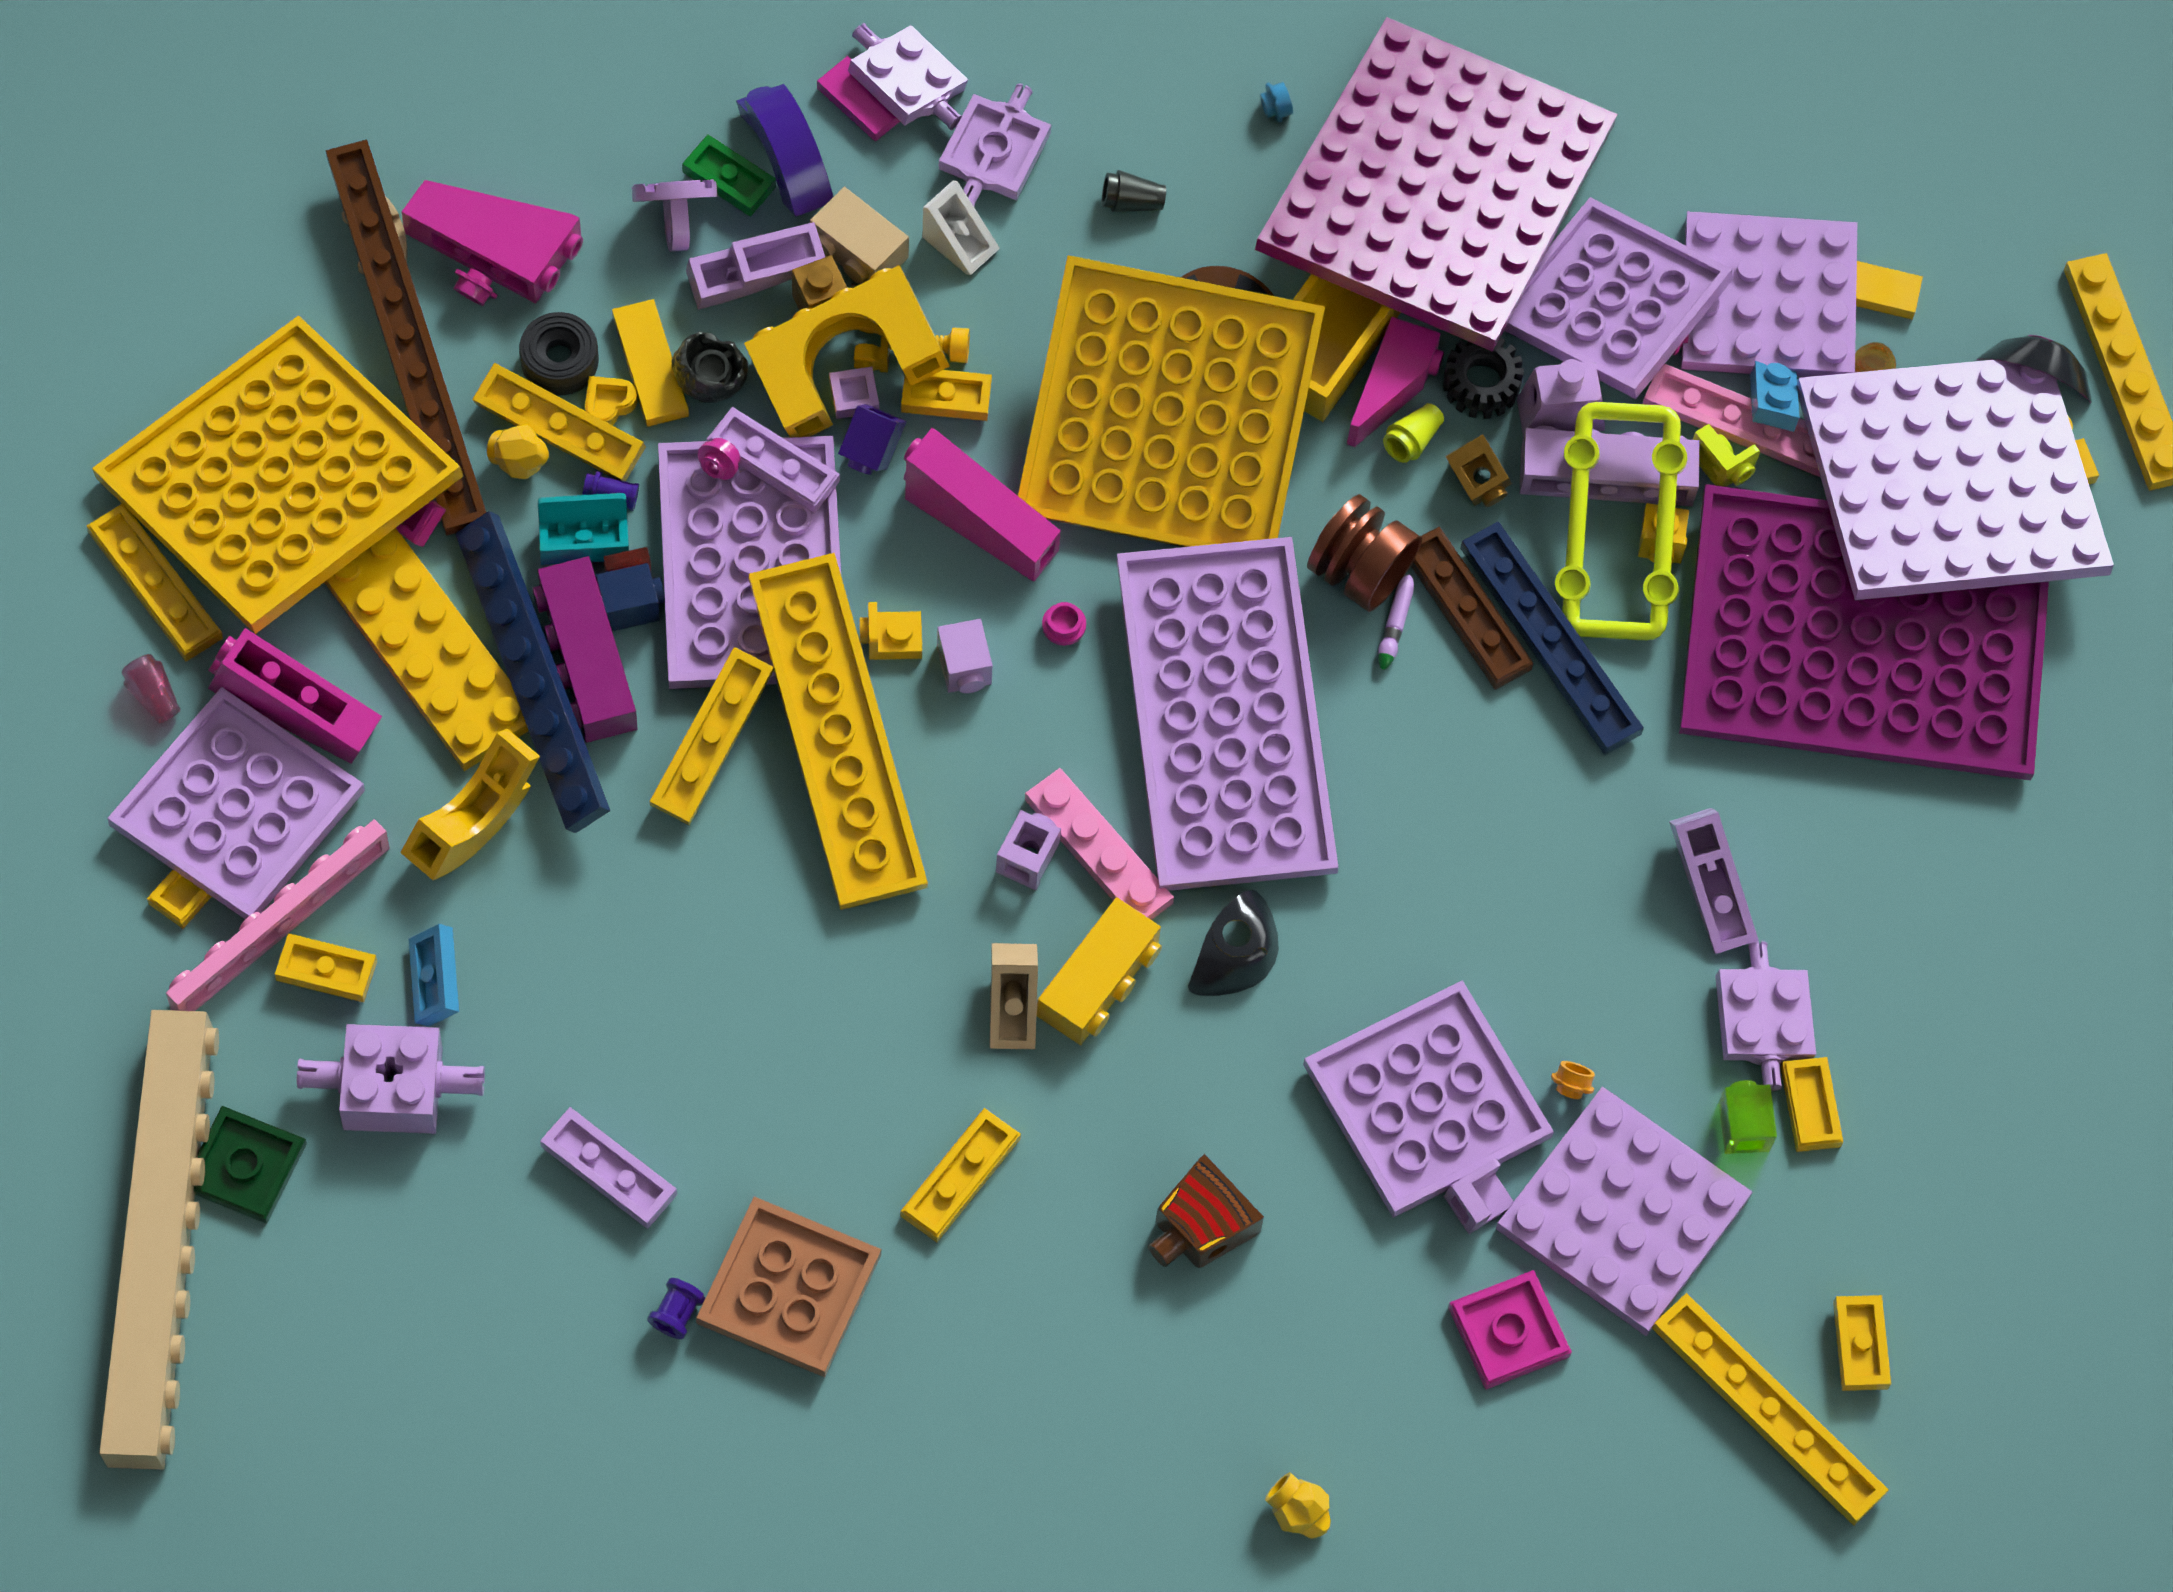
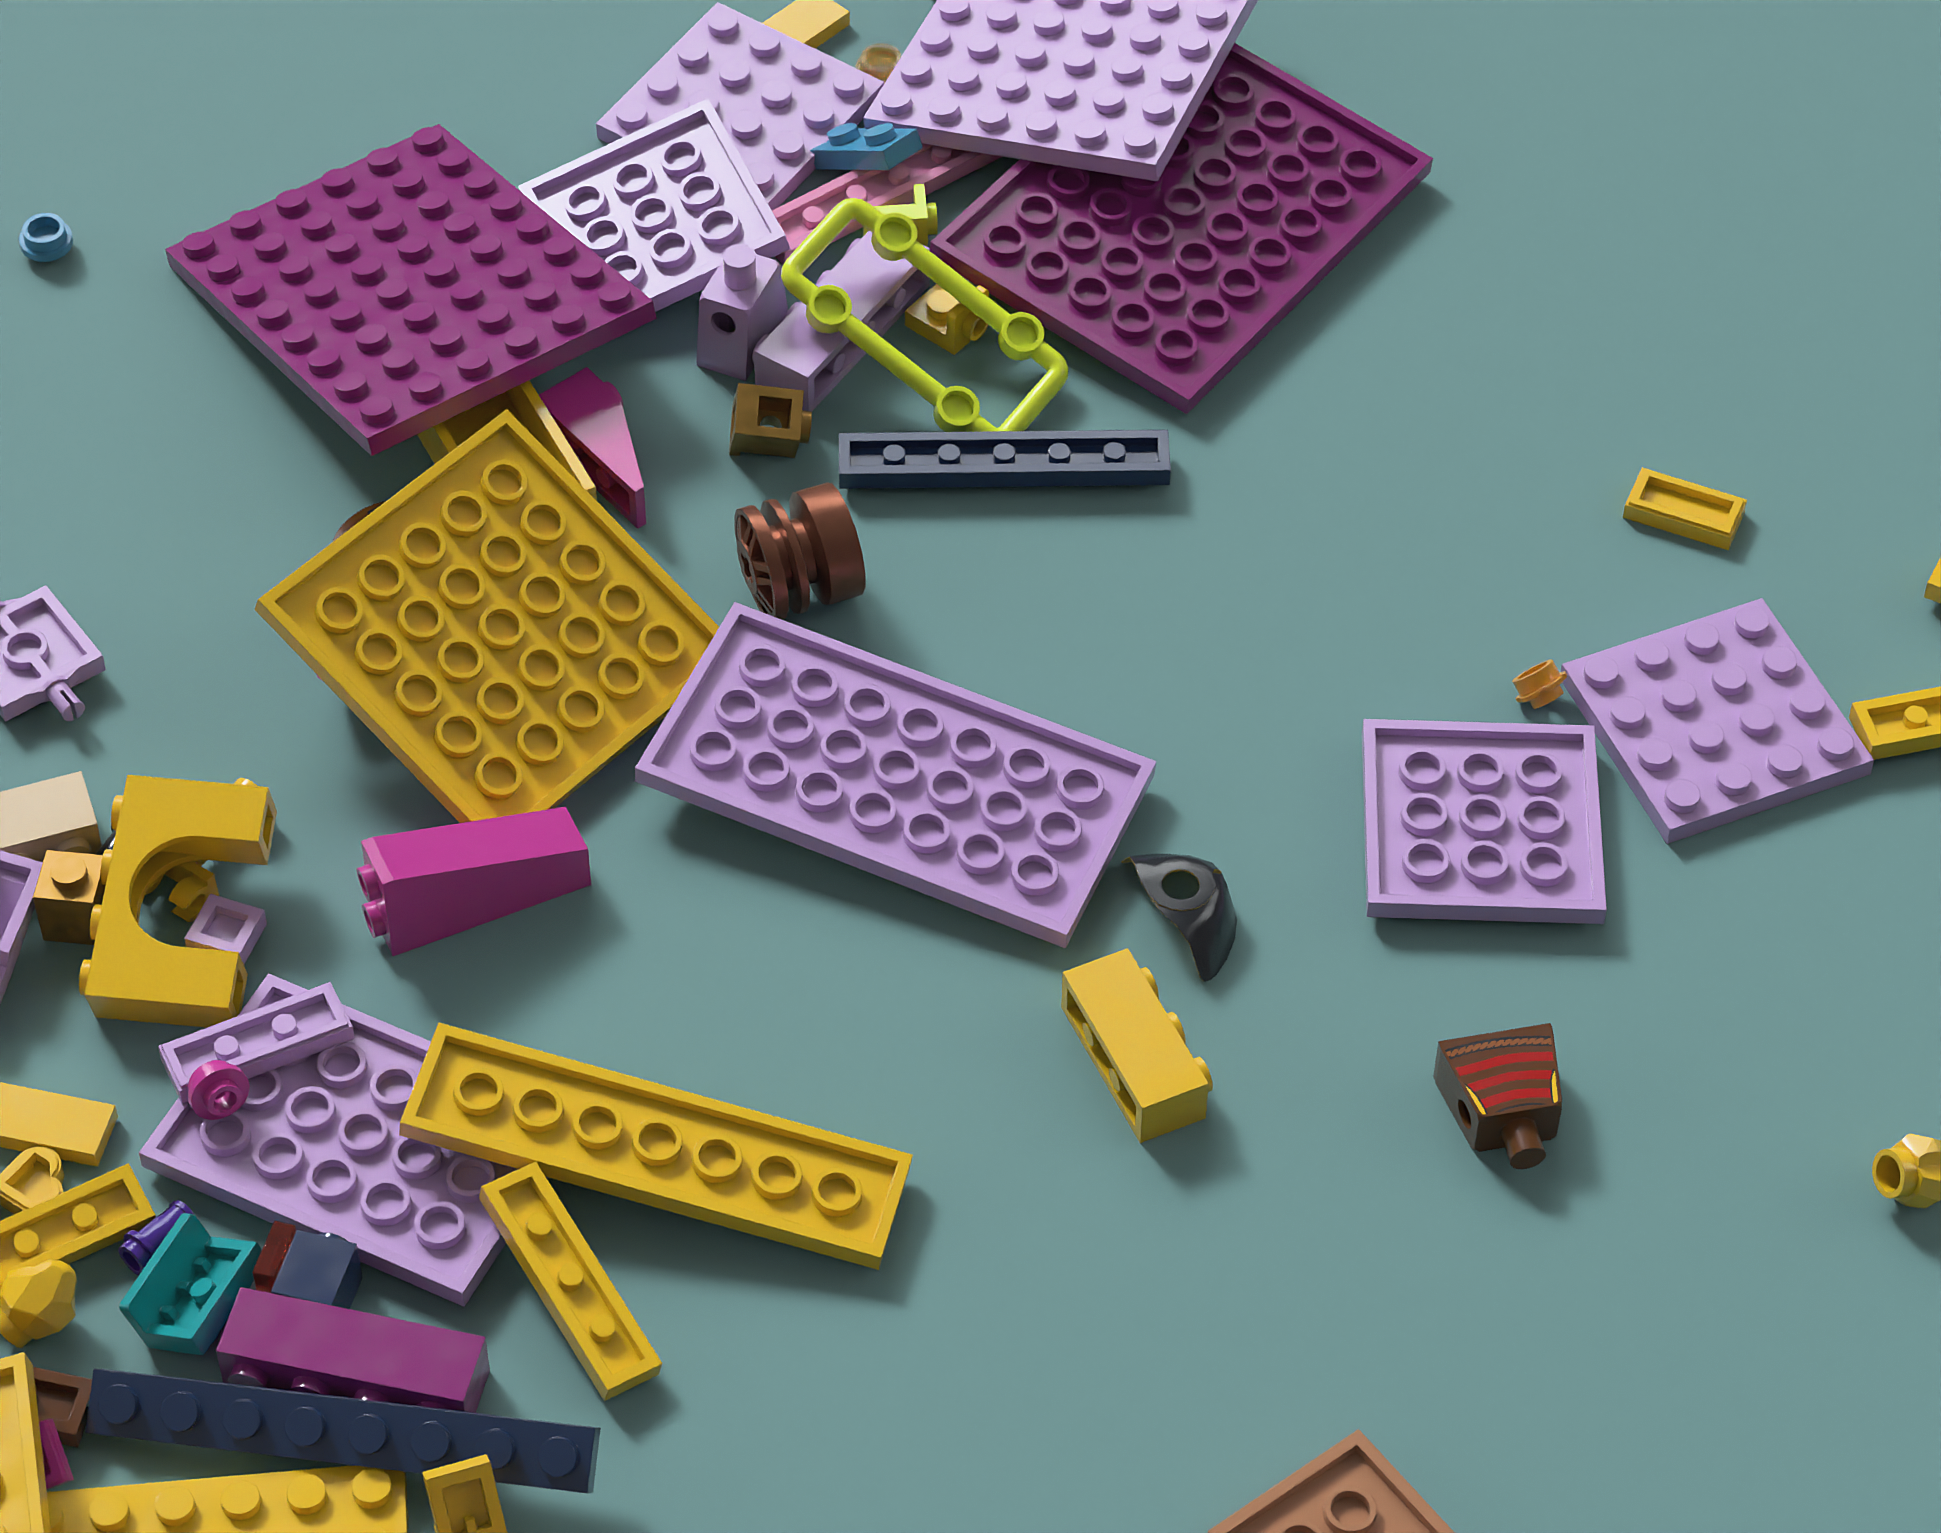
camera: 55 degrees left, 15 degrees down
(709, 368) = (81, 1054): pearl dark grey hair -> none
(871, 439) = (305, 935): dark purple brick -> none
(891, 634) = (565, 1034): yellow bracket -> none
(949, 395) = (301, 844): yellow plate -> none
(957, 229) = (104, 733): white slope -> none
(960, 1175) = (1301, 1312): yellow tile -> none
(964, 656) = (646, 983): lavender brick -> none
(1013, 996) = (1110, 1139): tan slope -> none
(1021, 864) = (936, 1038): lavender brick -> none
(1064, 624) = (670, 874): dark pink plate -> none
(1098, 845) = (965, 978): bright pink plate -> none
(1132, 193) = (186, 561): pearl dark grey cone -> none
(1276, 101) = (184, 384): dark azure plate -> none
(1394, 627) = (911, 602): lavender piece -> none
(1410, 435) = (676, 459): neon yellow cone -> none
(1469, 610) = (937, 515): reddish brown tile -> none
(1477, 397) = (656, 348): black tyre -> none
(1479, 1197) = (1631, 835): lavender panel -> none
(1509, 1329) = (1799, 884): dark pink tile -> none
(1714, 879) = (1377, 455): lavender slope -> none
(1747, 1118) = (1675, 560): clear neon green brick -> none
(1765, 1015) = (1561, 495): lavender plate -> none

